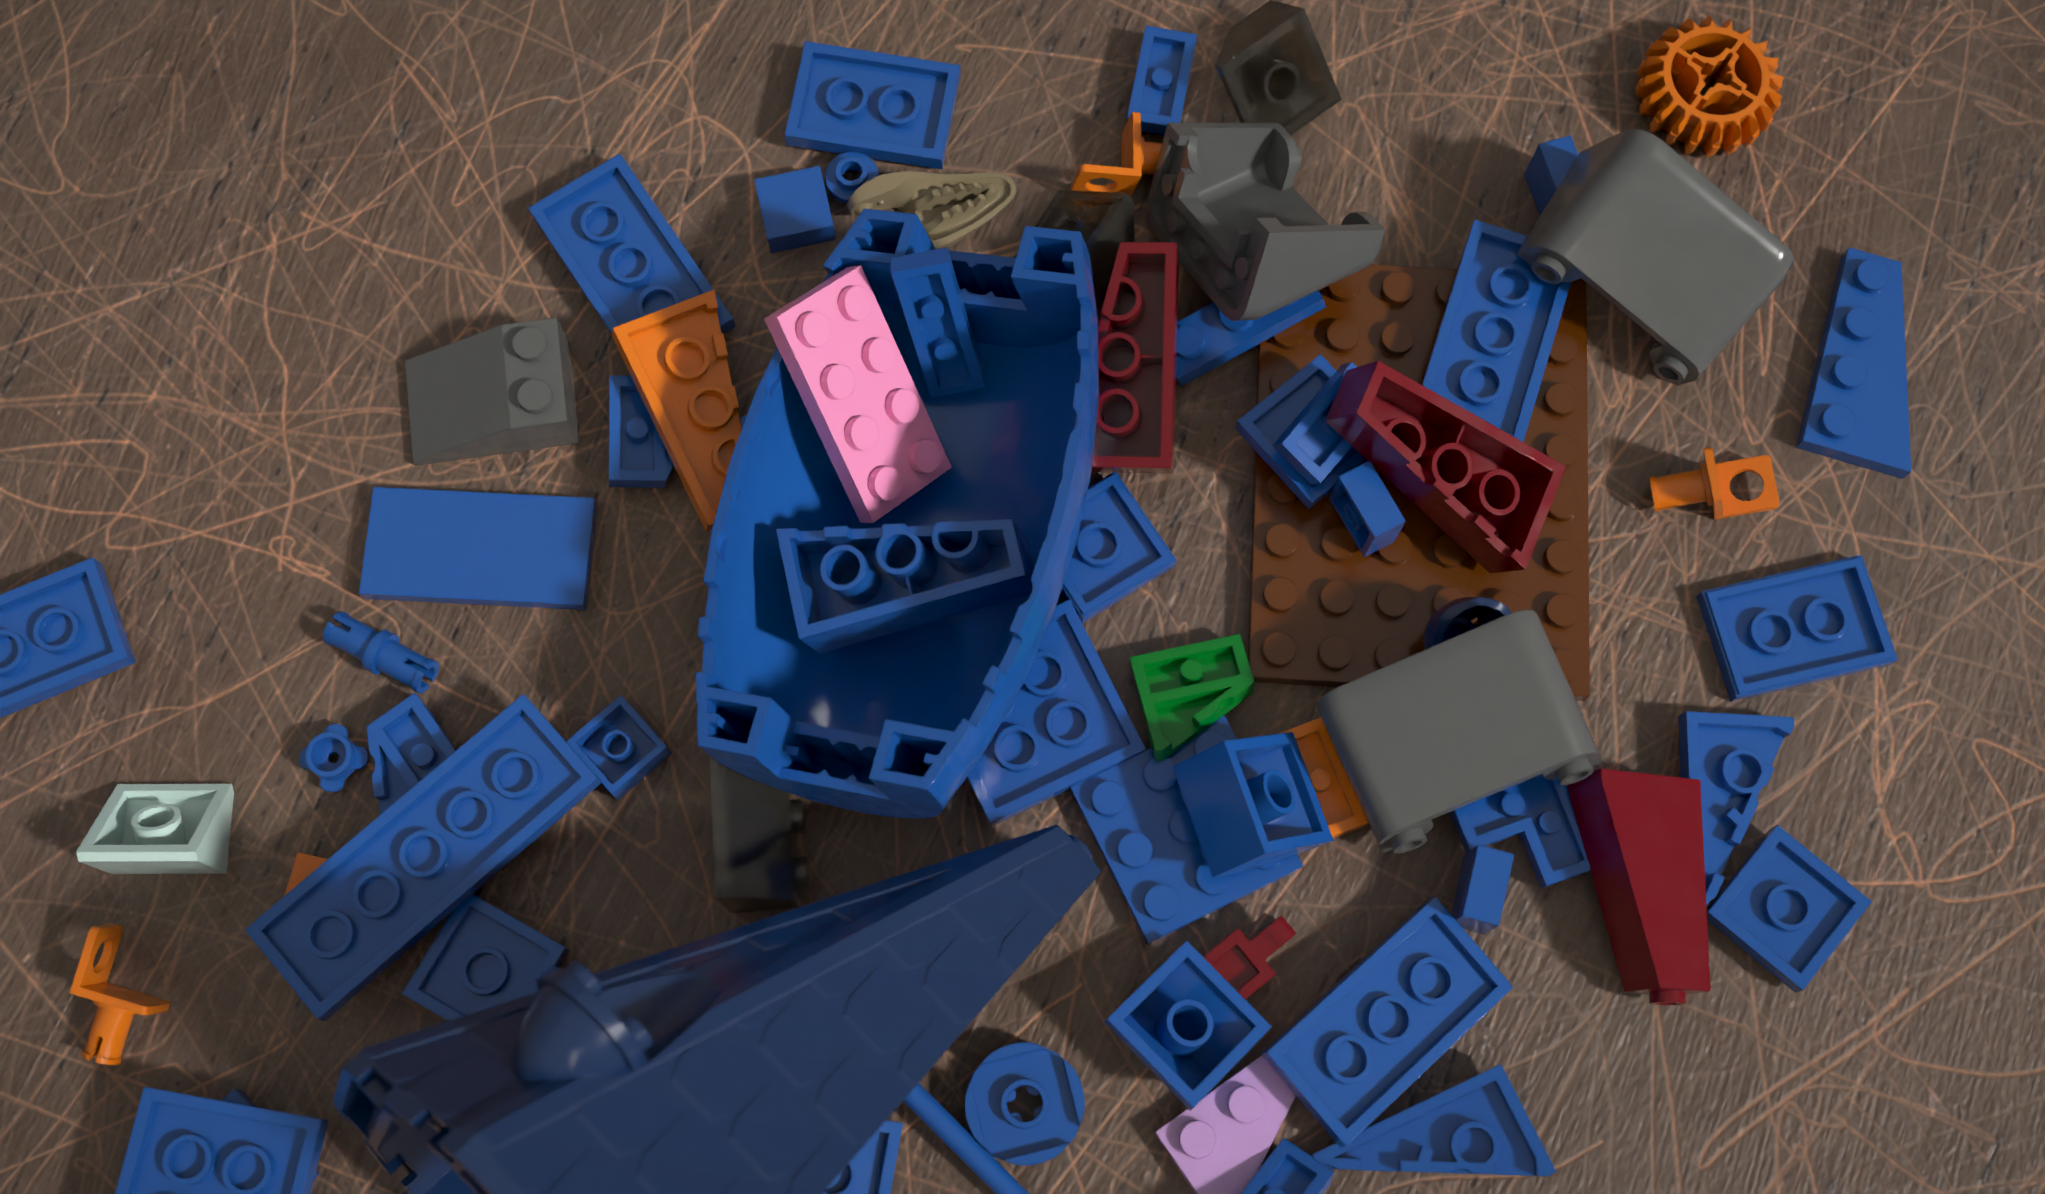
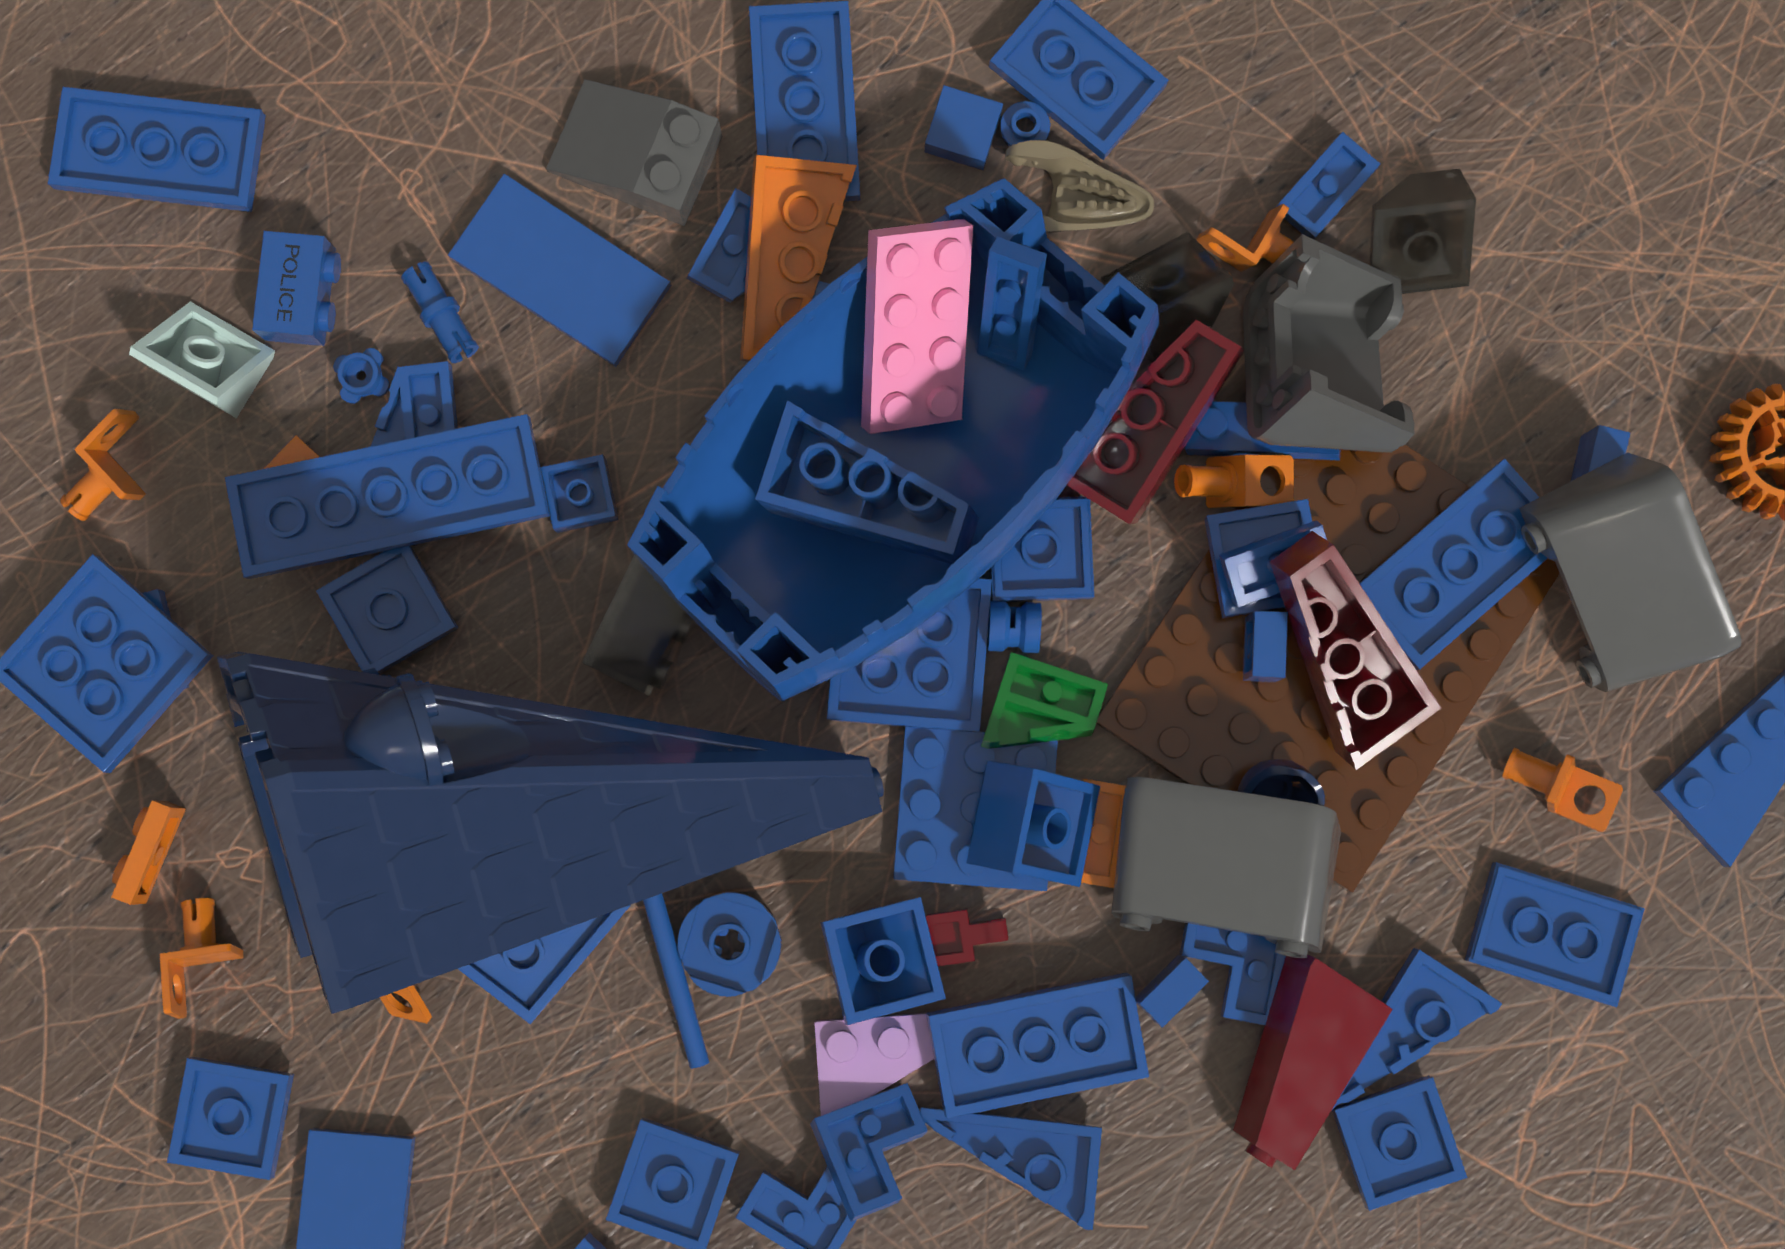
camera: 30 degrees right, 10 degrees up
(220, 709) = (296, 288): none -> blue brick
(1119, 631) = (1025, 631): none -> blue wheel
(1242, 378) = (1236, 480): none -> orange bracket

